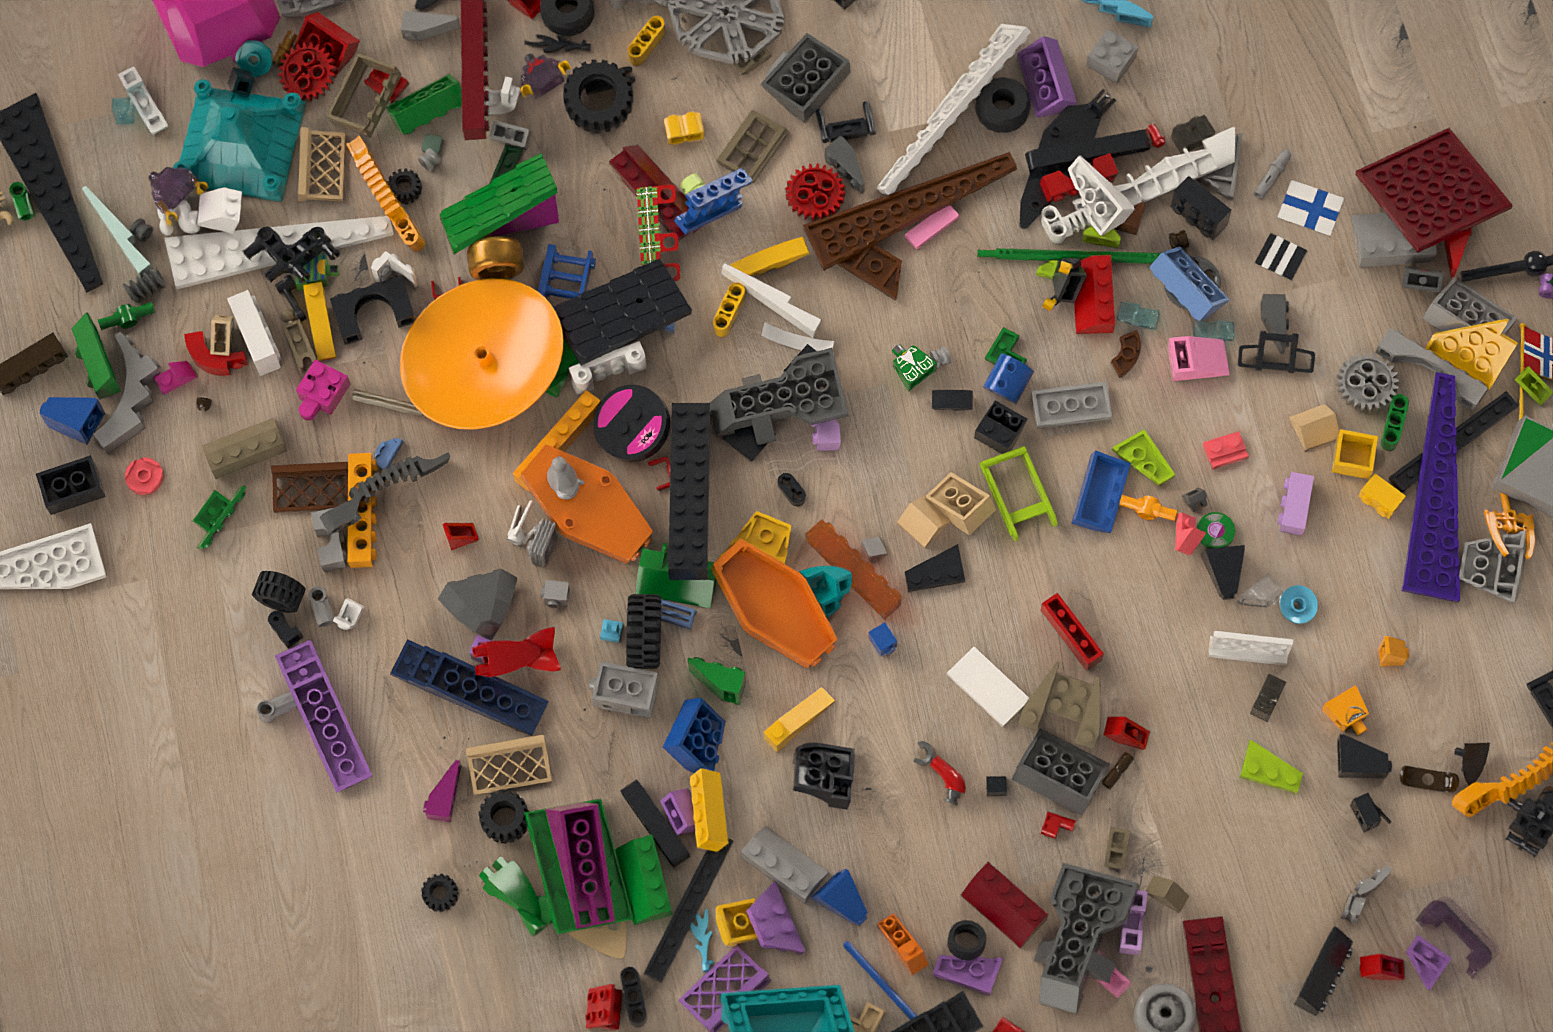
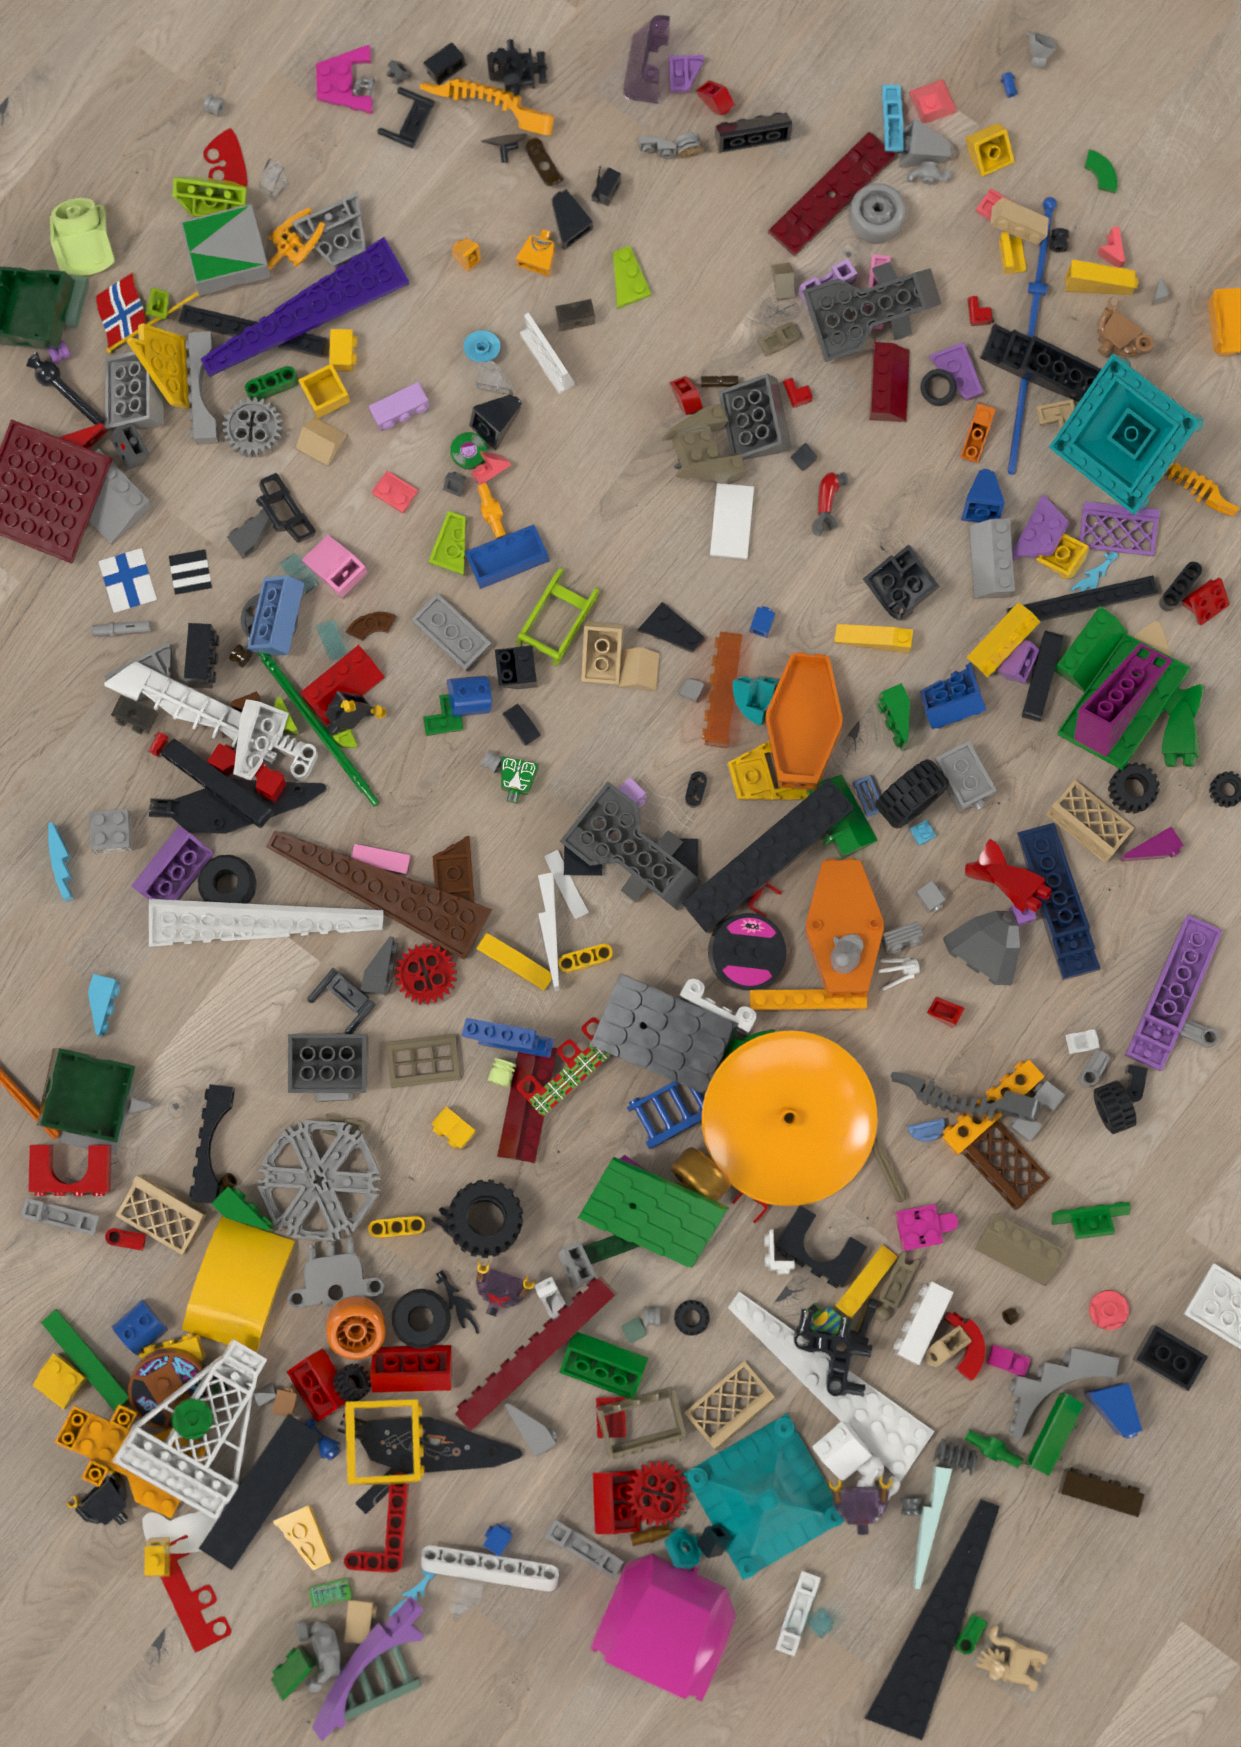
camera: 130 degrees left, 10 degrees up
(389, 203) = (712, 1336): light orange piece -> none
(1072, 631) = (641, 489): red brick -> none

